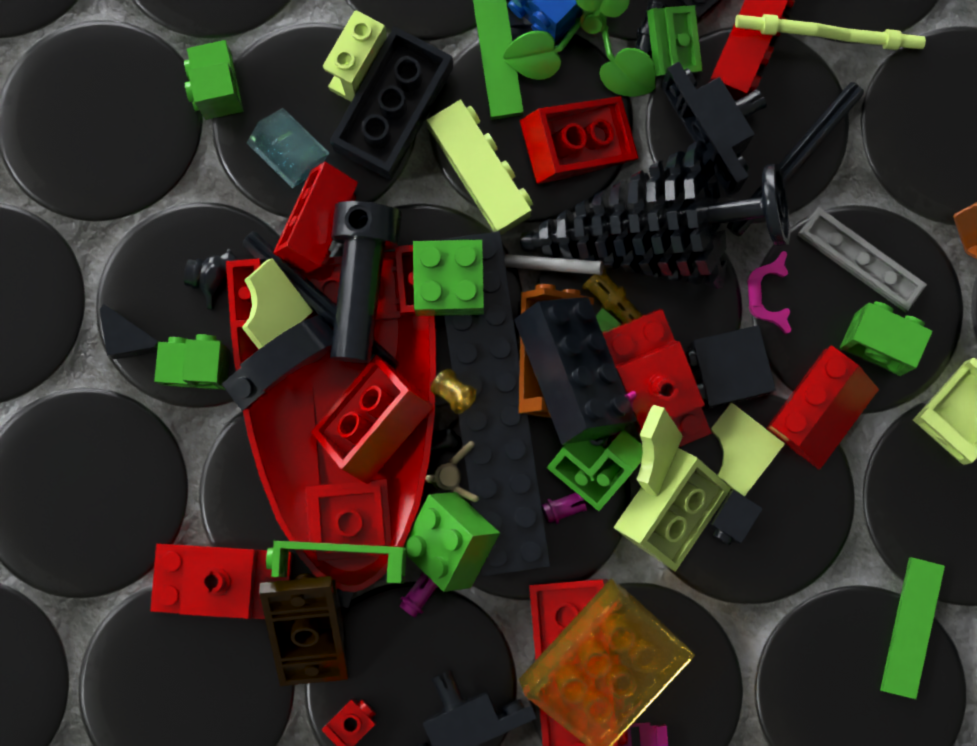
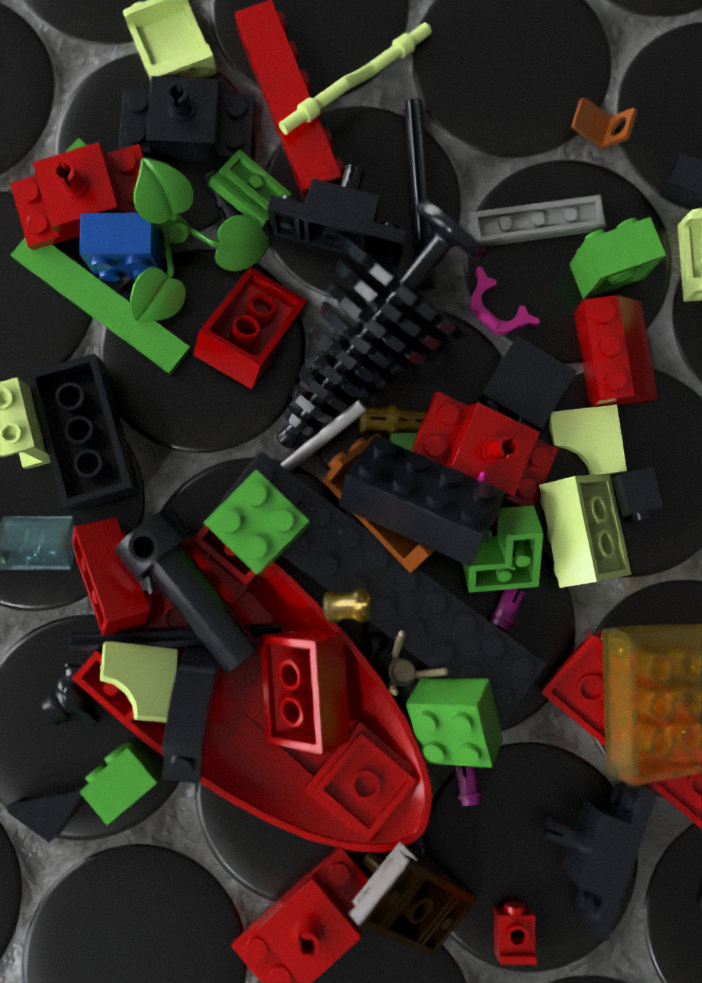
camera: 50 degrees left, 0 degrees up
(278, 556) = (343, 876): bright green panel -> none
(479, 168) = (197, 418): yellowish green brick -> none
(659, 445) = (538, 494): yellowish green tile -> none

